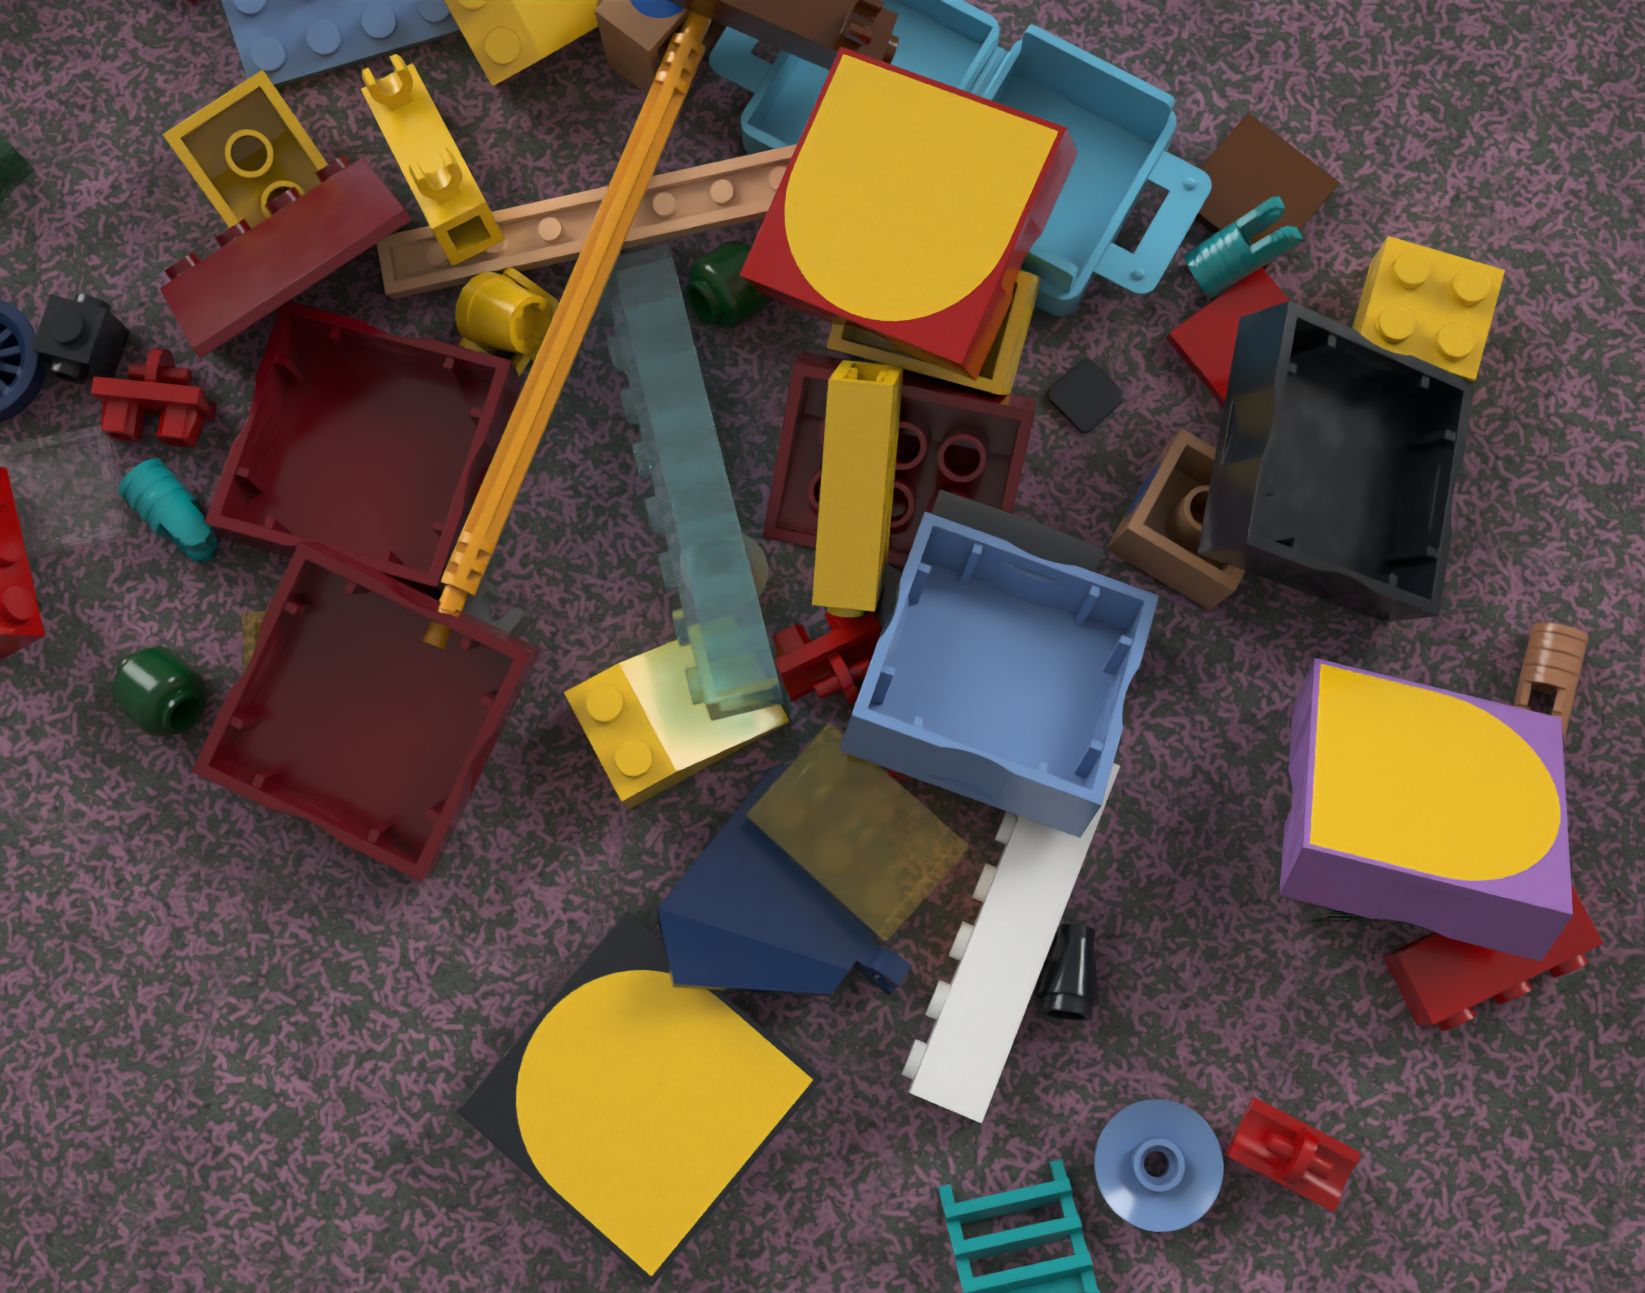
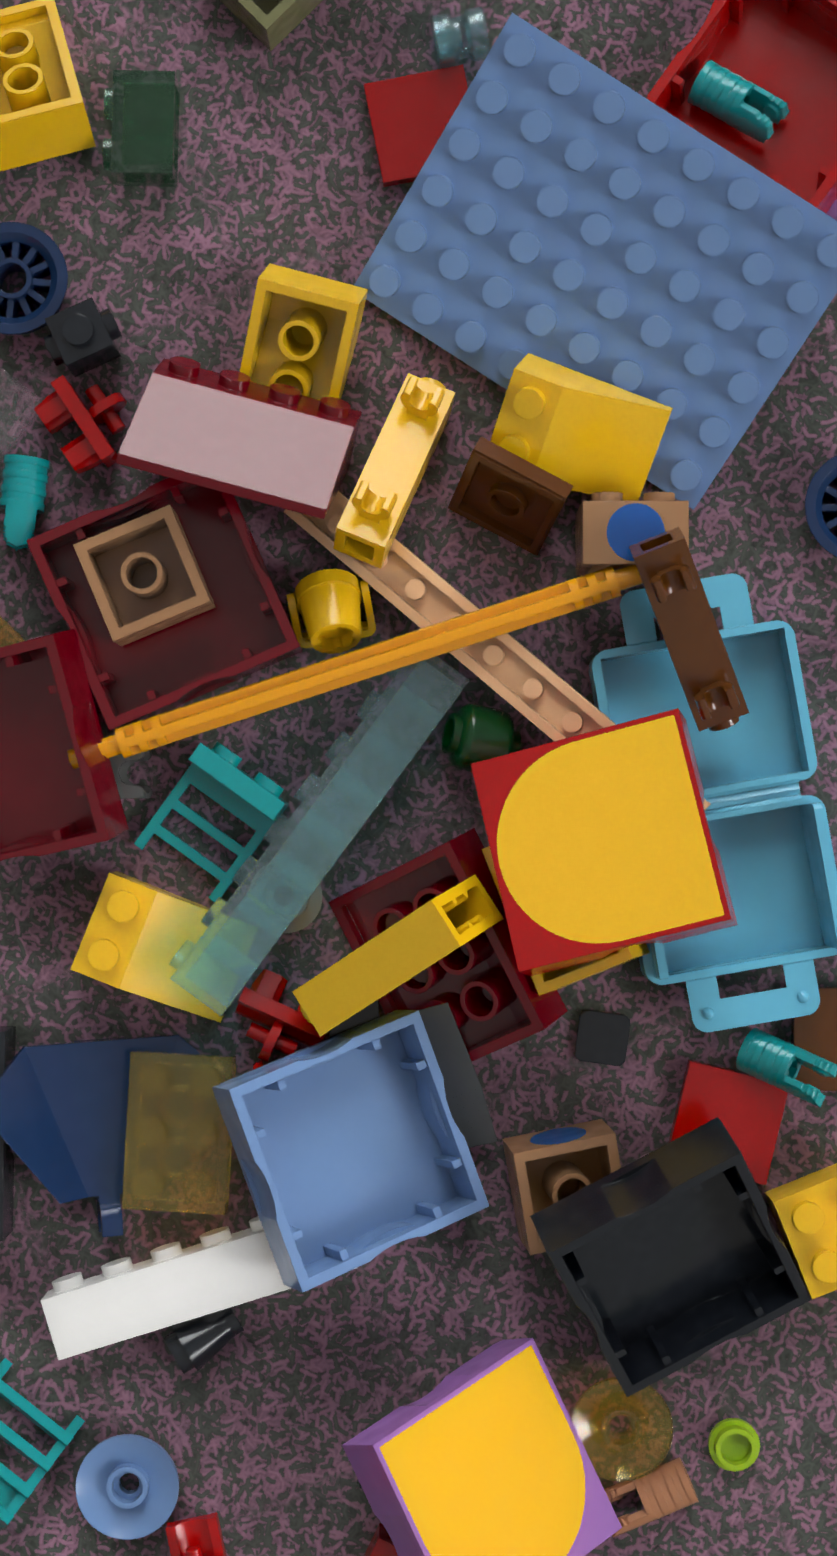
camera: 45 degrees right, 10 degrees up
(330, 447) = (144, 576): none -> medium nougat brick
(540, 87) = (509, 496): none -> reddish brown tile
(590, 530) = (248, 798): none -> teal plate
(1487, 635) = (631, 1452): none -> clear yellow dish
(1557, 569) = (733, 1444): none -> lime plate

